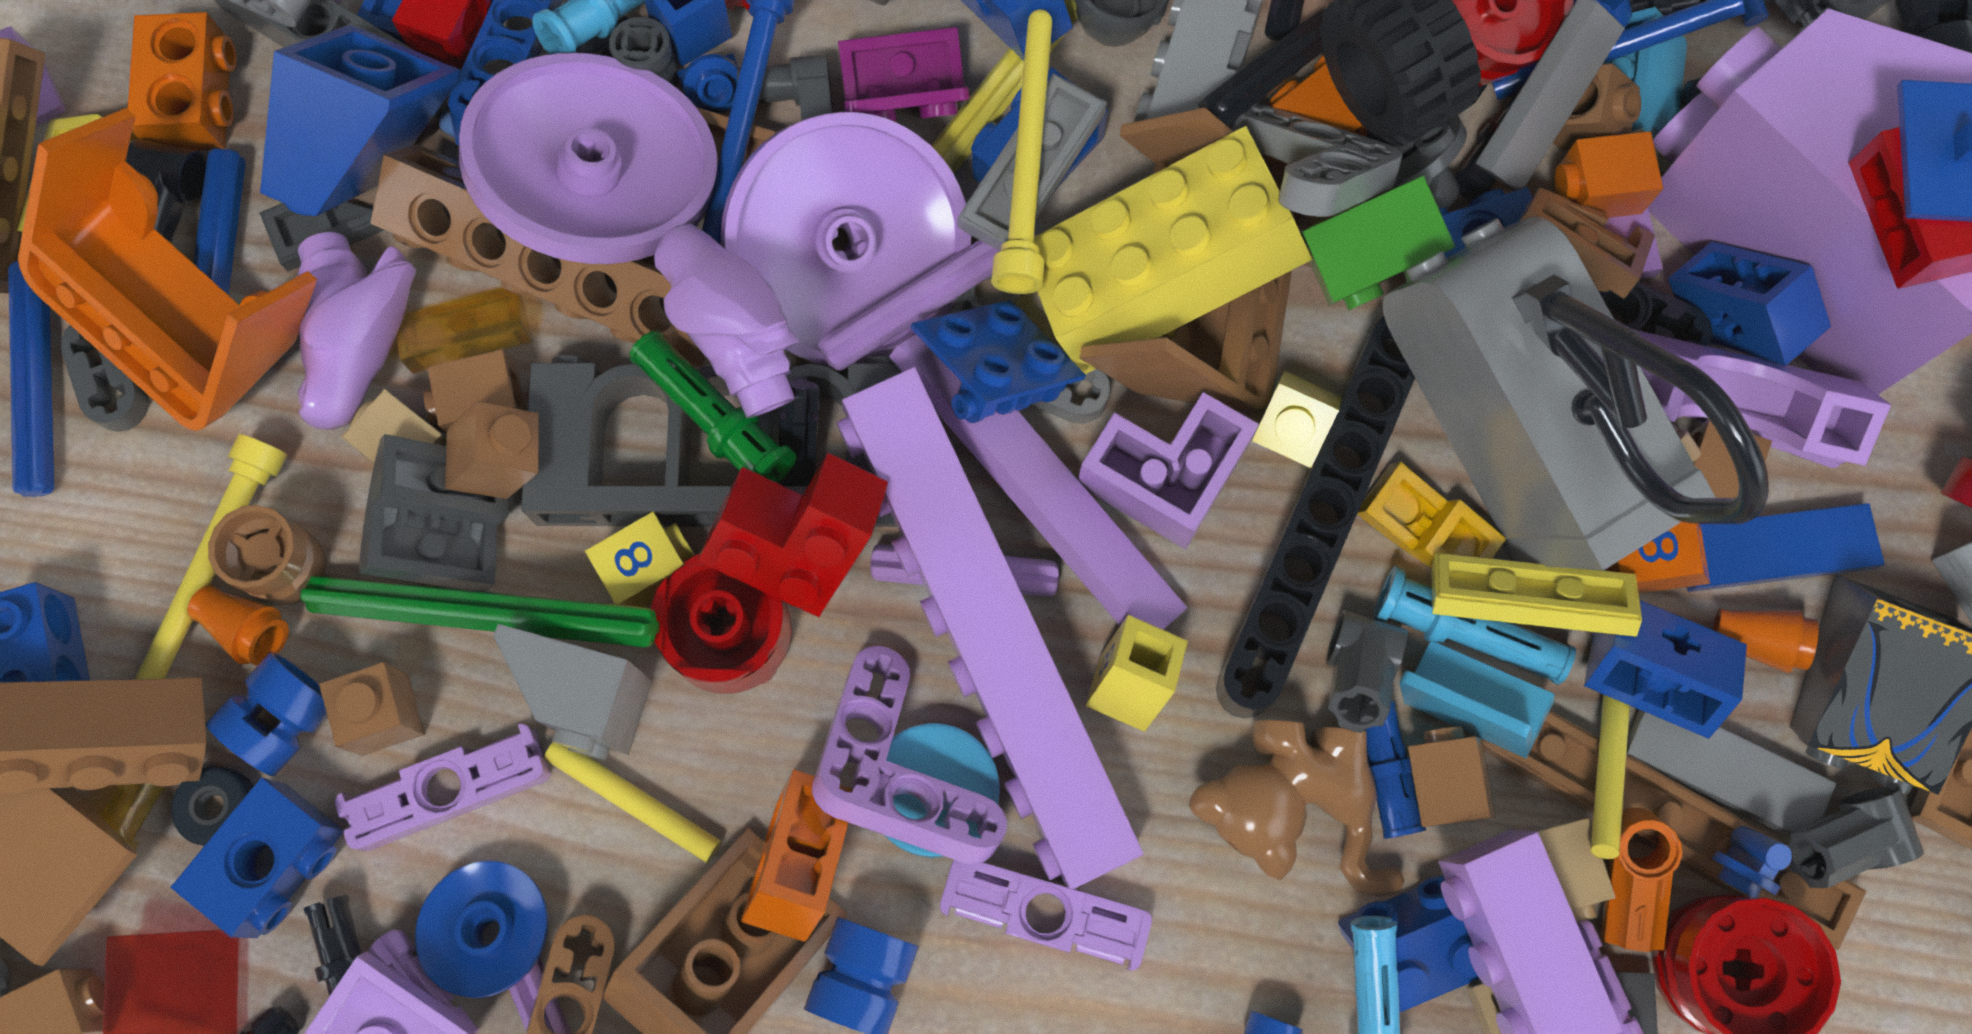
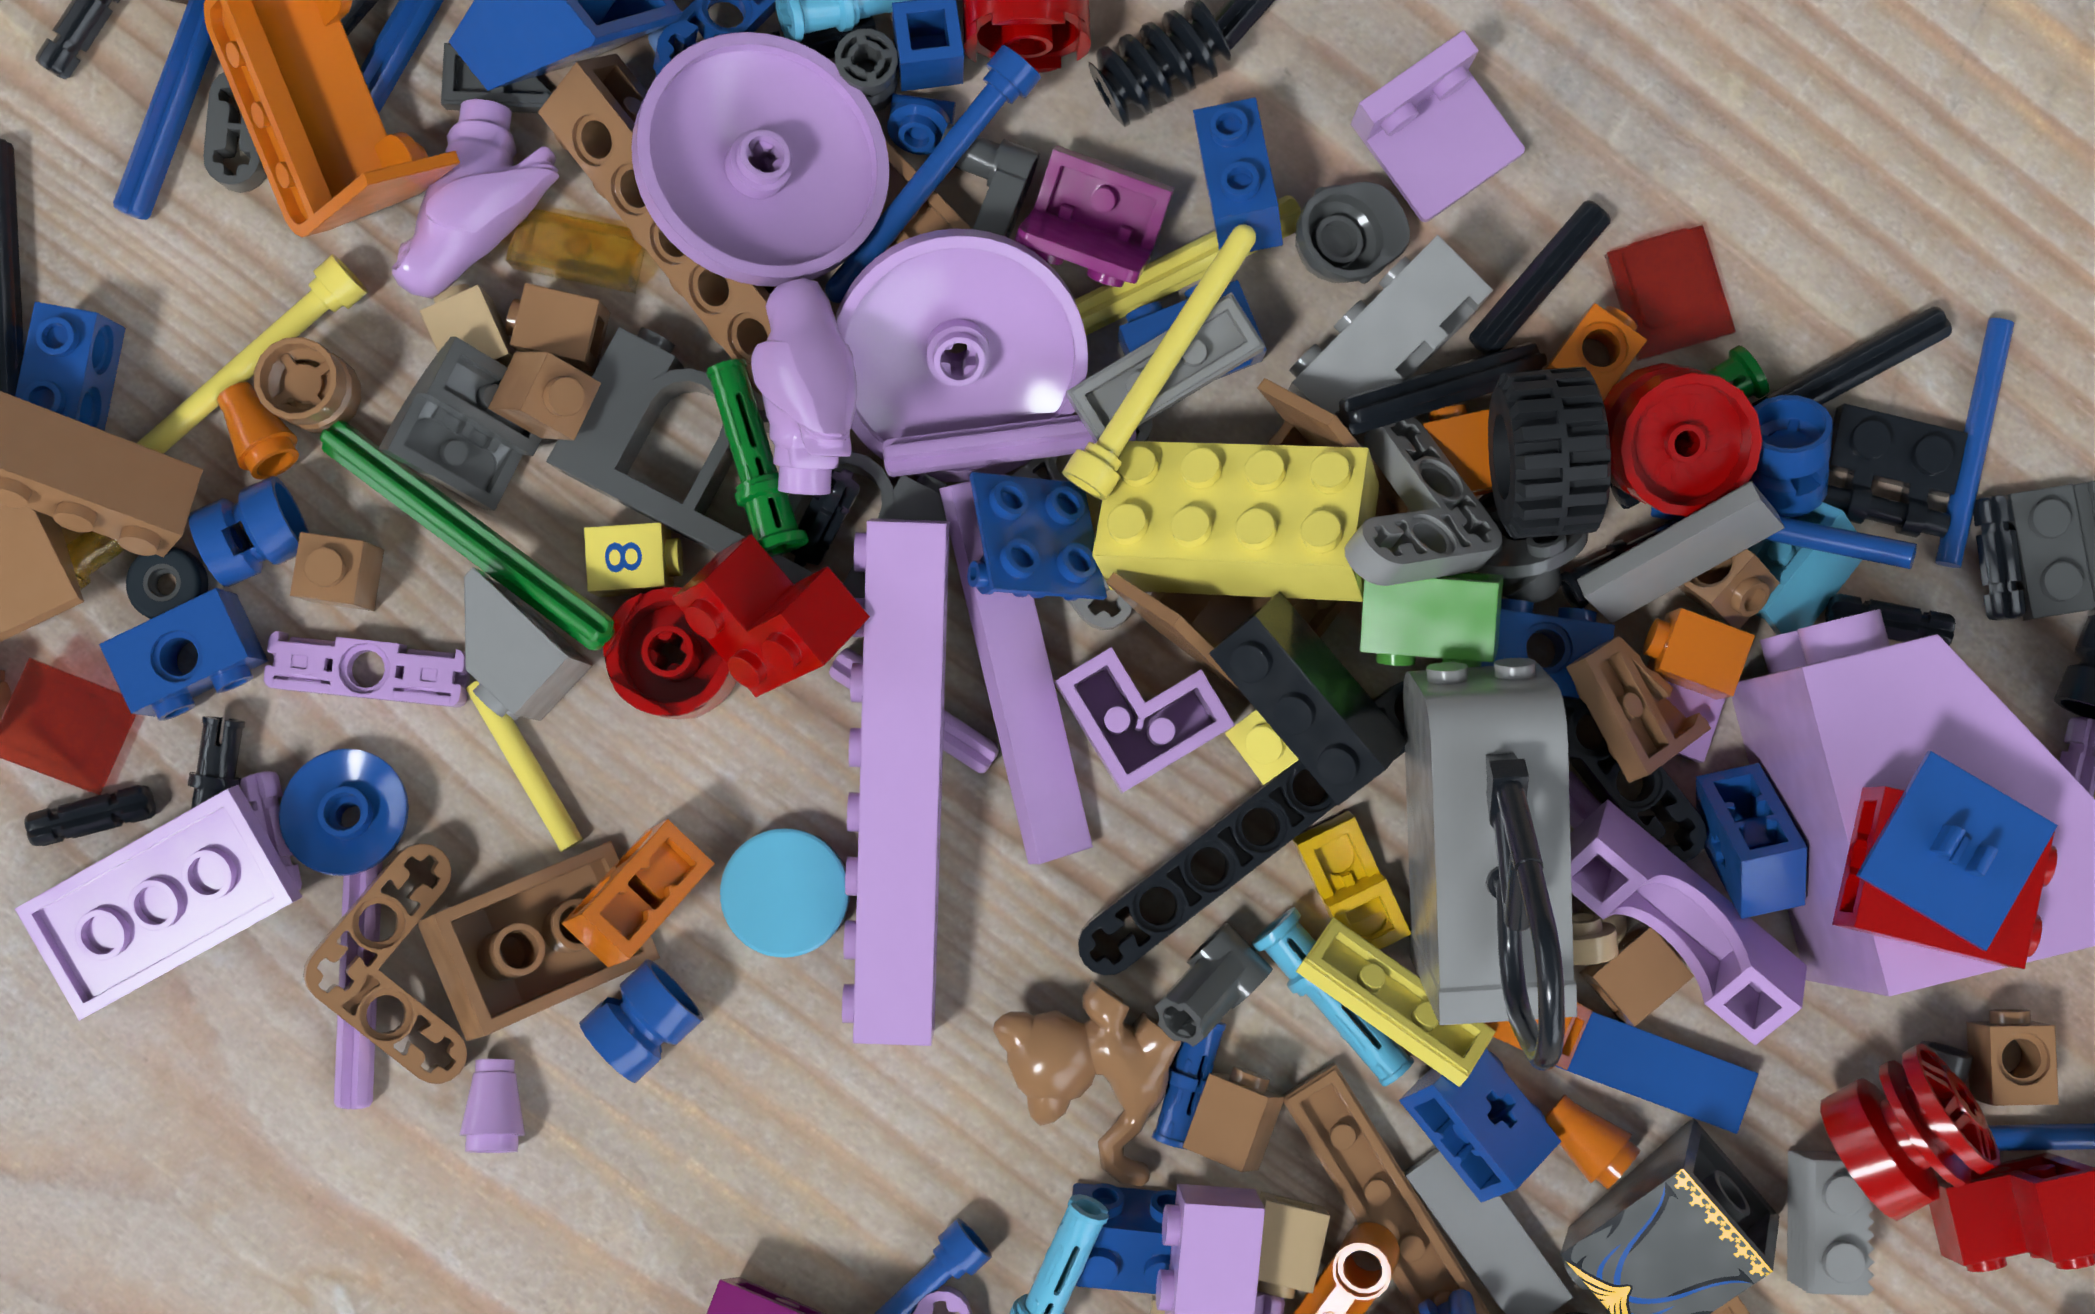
camera: 30 degrees right, 10 degrees up
(879, 780) = (737, 867): lavender beam -> none
(1090, 922) = (861, 1075): lavender piece -> none
(1136, 673) = (1010, 886): light yellow brick -> none
(1314, 363) = (1309, 698): none -> black brick
(1478, 698) = (1300, 1061): medium azure panel -> none
(1610, 779) = (1370, 1192): light yellow bar -> none

